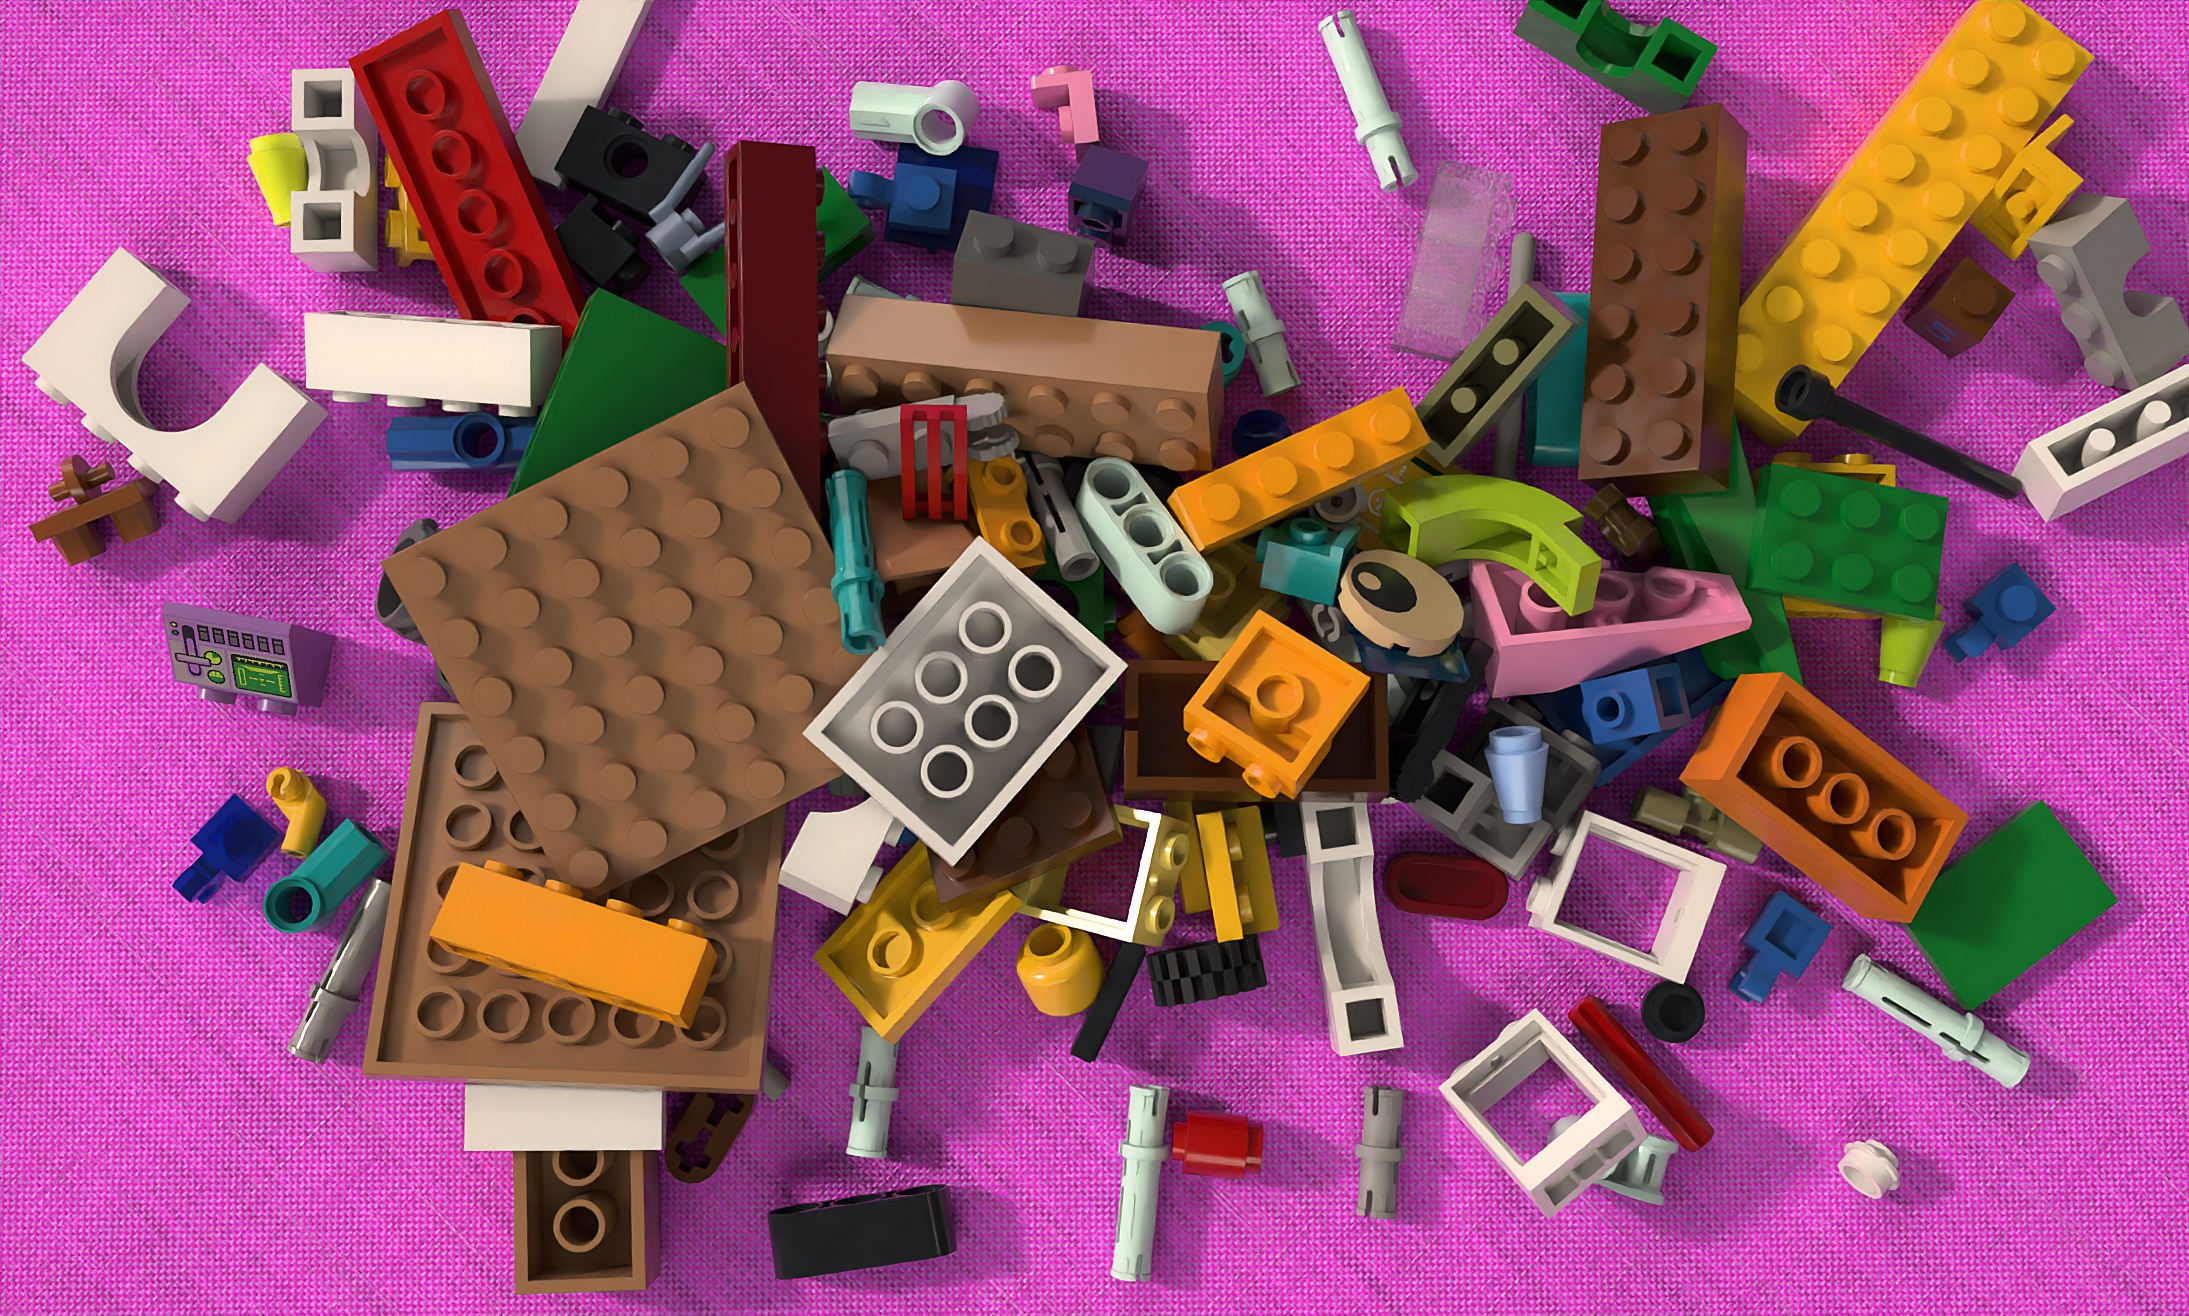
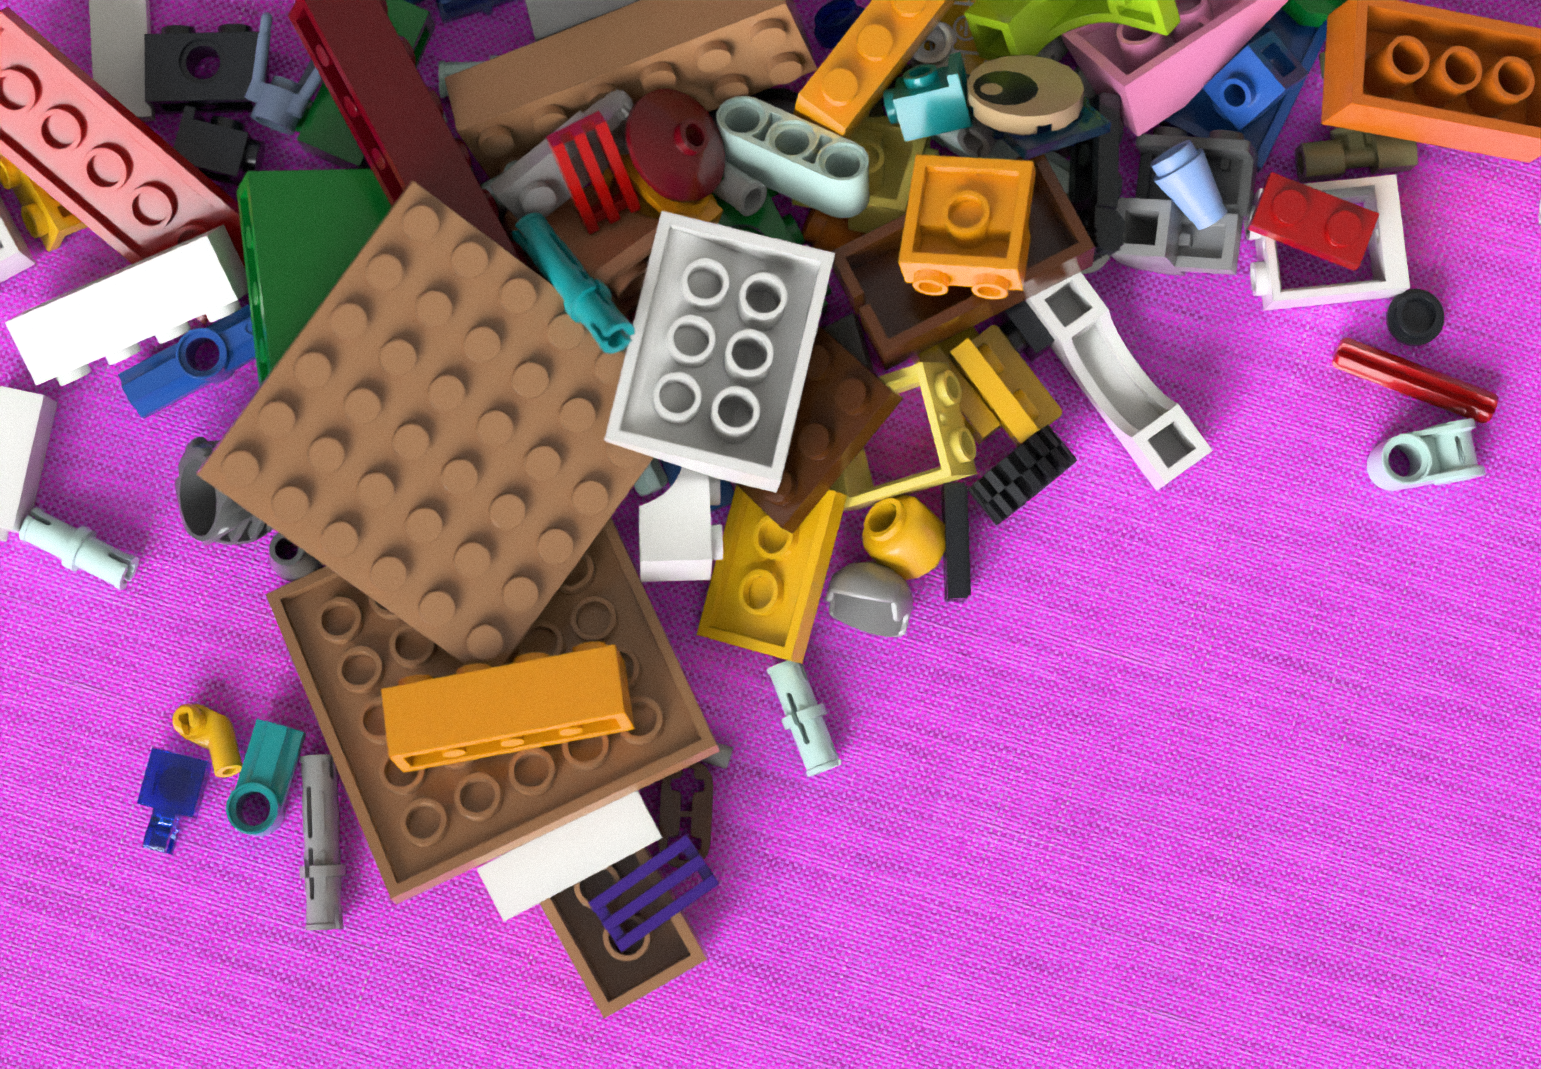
camera: 25 degrees left, 0 degrees up
(247, 656) = (105, 629): slope -> none
(269, 564) = (79, 548): none -> light aqua pin
(571, 1206) = (612, 922): none -> dark purple tile
(862, 1231) = (854, 833): black beam -> none
(997, 1011) = (870, 599): none -> light grey hair
(1011, 471) = (675, 145): none -> dark red dish
(1142, 1155) = (1057, 675): light aqua pin -> none
(1217, 1144) = (1104, 613): red brick -> none
(1380, 1151) = (1238, 551): light grey pin -> none
(1445, 885) = (1179, 312): dark red tile -> none
(1577, 1154) = (1393, 460): white window -> none
(1621, 871) = (1313, 221): none -> red plate
(1783, 941) = (1473, 214): blue plate -> none

